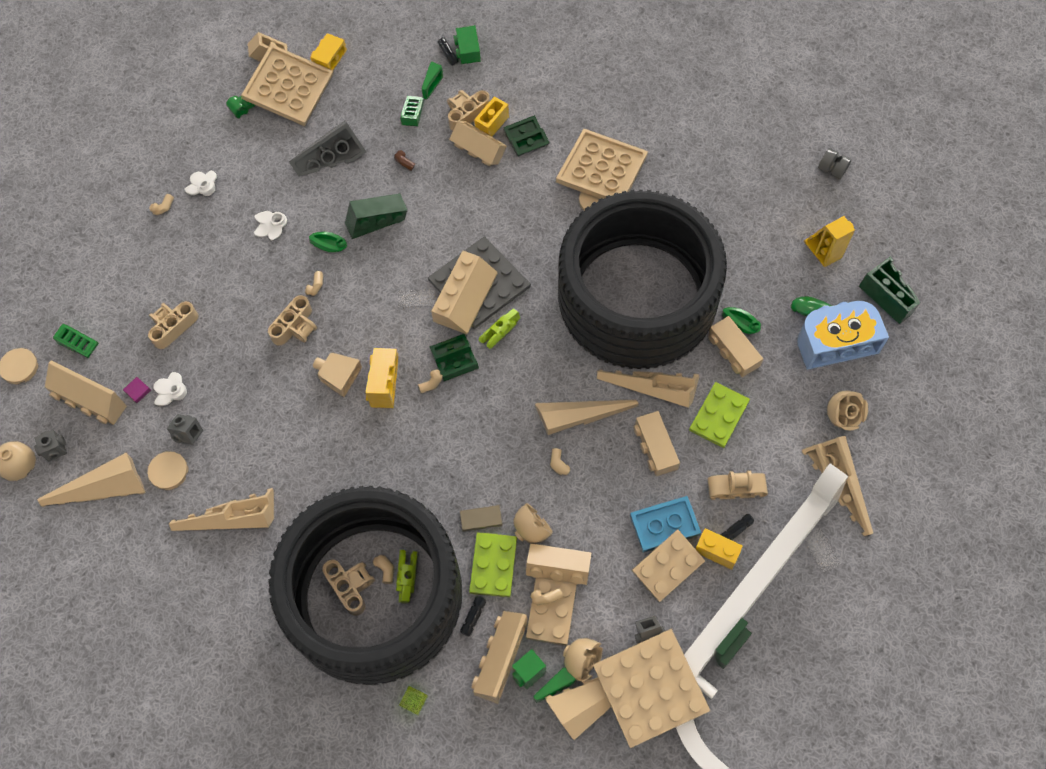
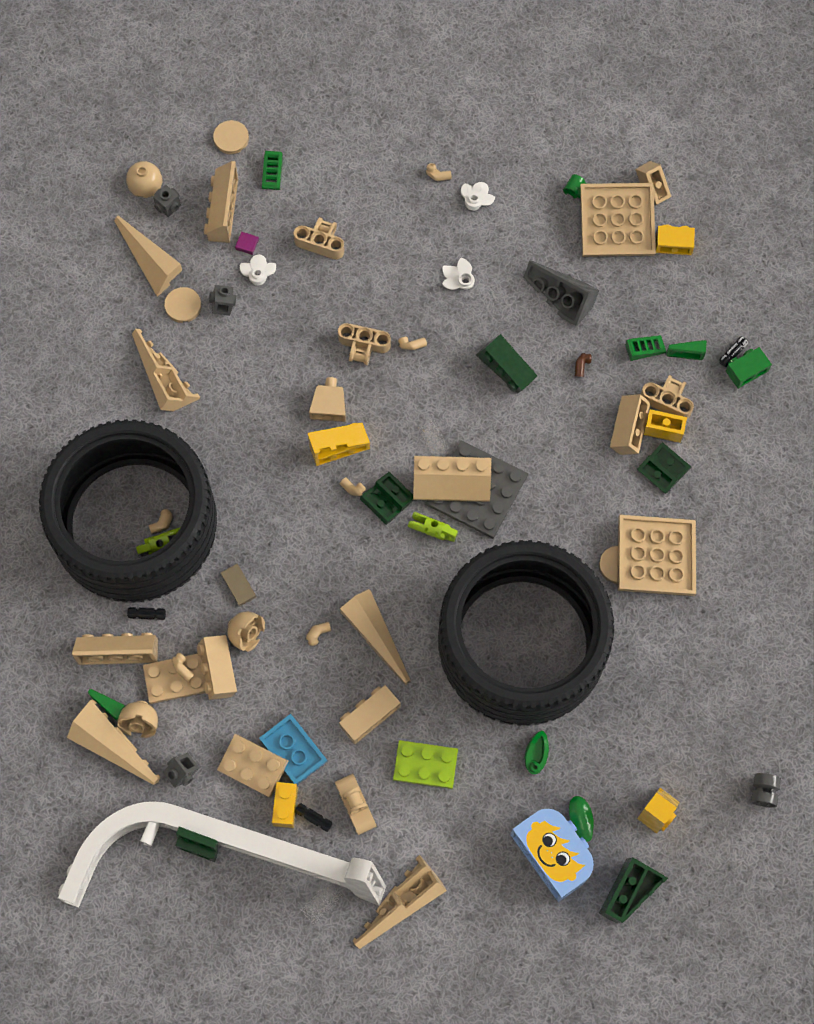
camera: 65 degrees right, 5 degrees up
(328, 241) = (461, 335): green arm -> none
(355, 582) = (141, 502): tan piece -> none
(413, 700) = (56, 593): clear neon green tile -> none
(493, 565) = (199, 612): lime plate -> none
(528, 670) = (111, 675): green brick -> none
(651, 688) = (129, 784): tan plate -> none
(656, 384) = (433, 695): tan wedge -> none
(735, 347) = (502, 754): tan brick -> none
(847, 410) = (472, 883): tan cylinder -> none

